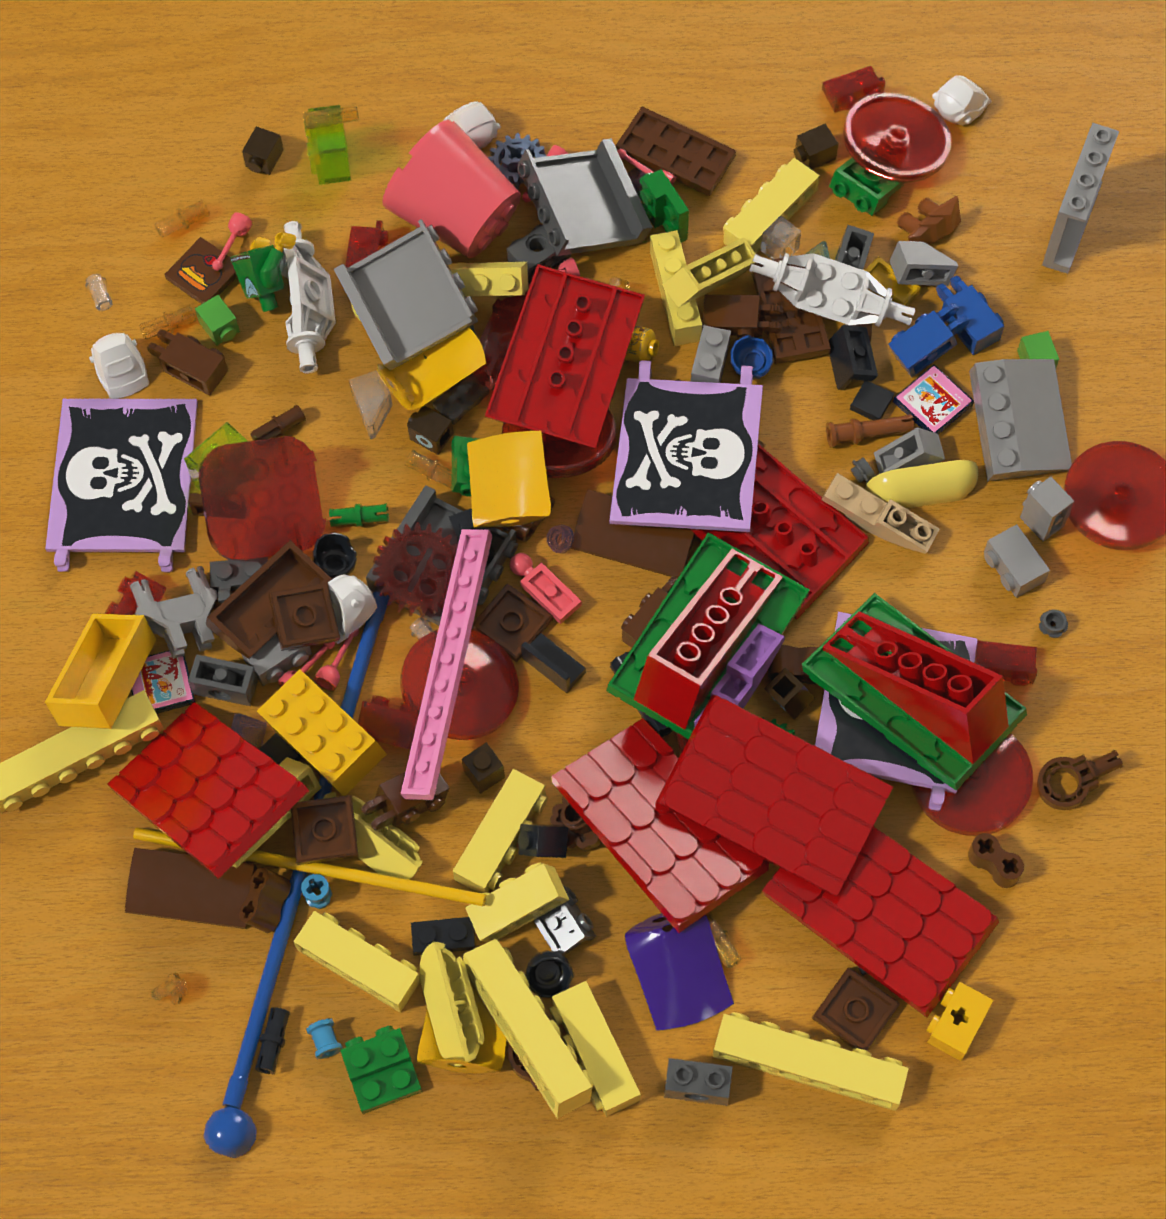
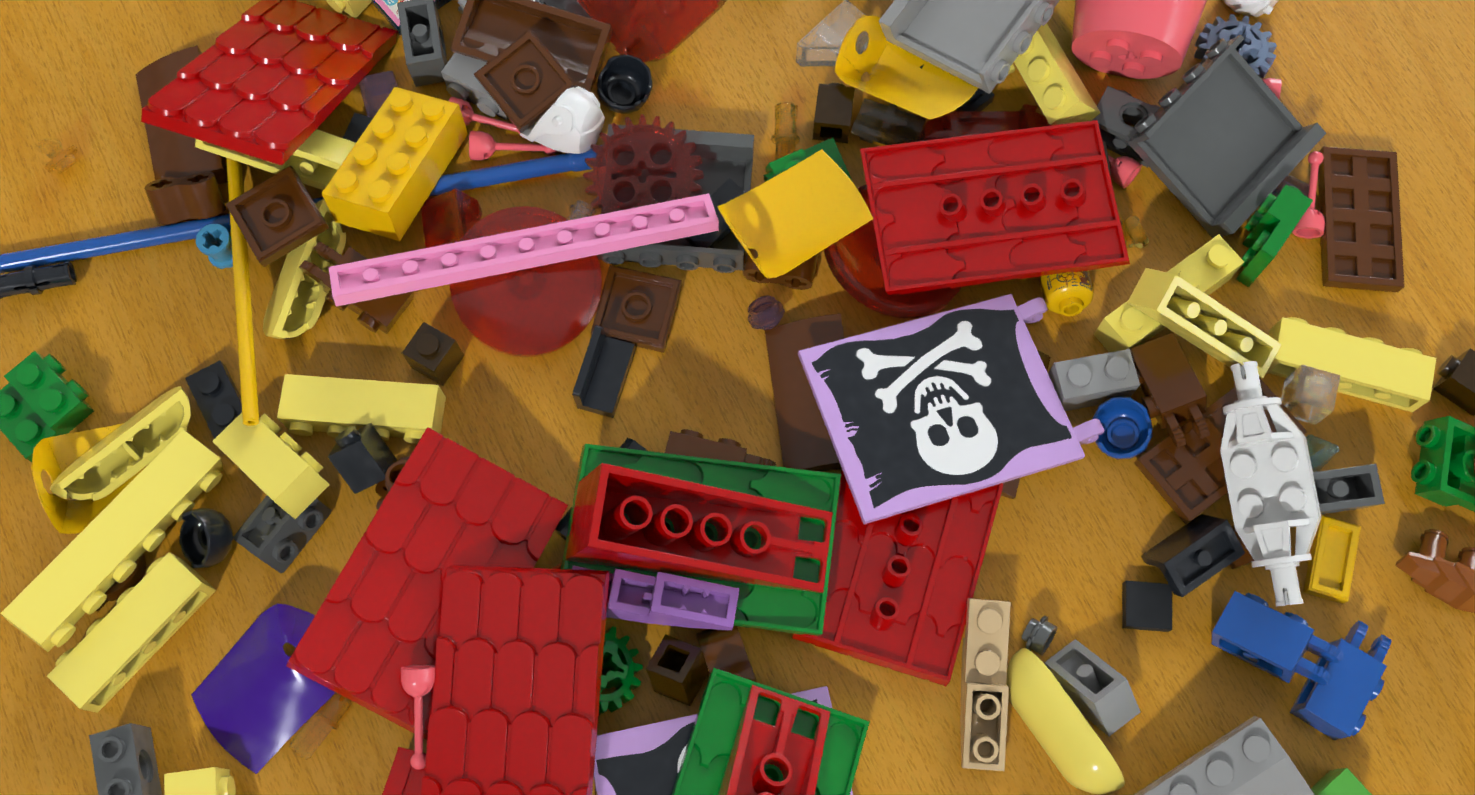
camera: 65 degrees right, 5 degrees up
(324, 1038) = (51, 331): dark azure bush -> none
(357, 960) = (151, 324): light yellow brick -> none
(359, 515) = (691, 89): green pin -> none
(545, 587) = (694, 324): coral plate -> none
(728, 851) = (417, 682): none -> coral hinge
(856, 431) = (1091, 602): dark orange pin -> none
(921, 264) = (1379, 587): light grey slope -> none
(933, 400) = (1190, 686): tile -> none

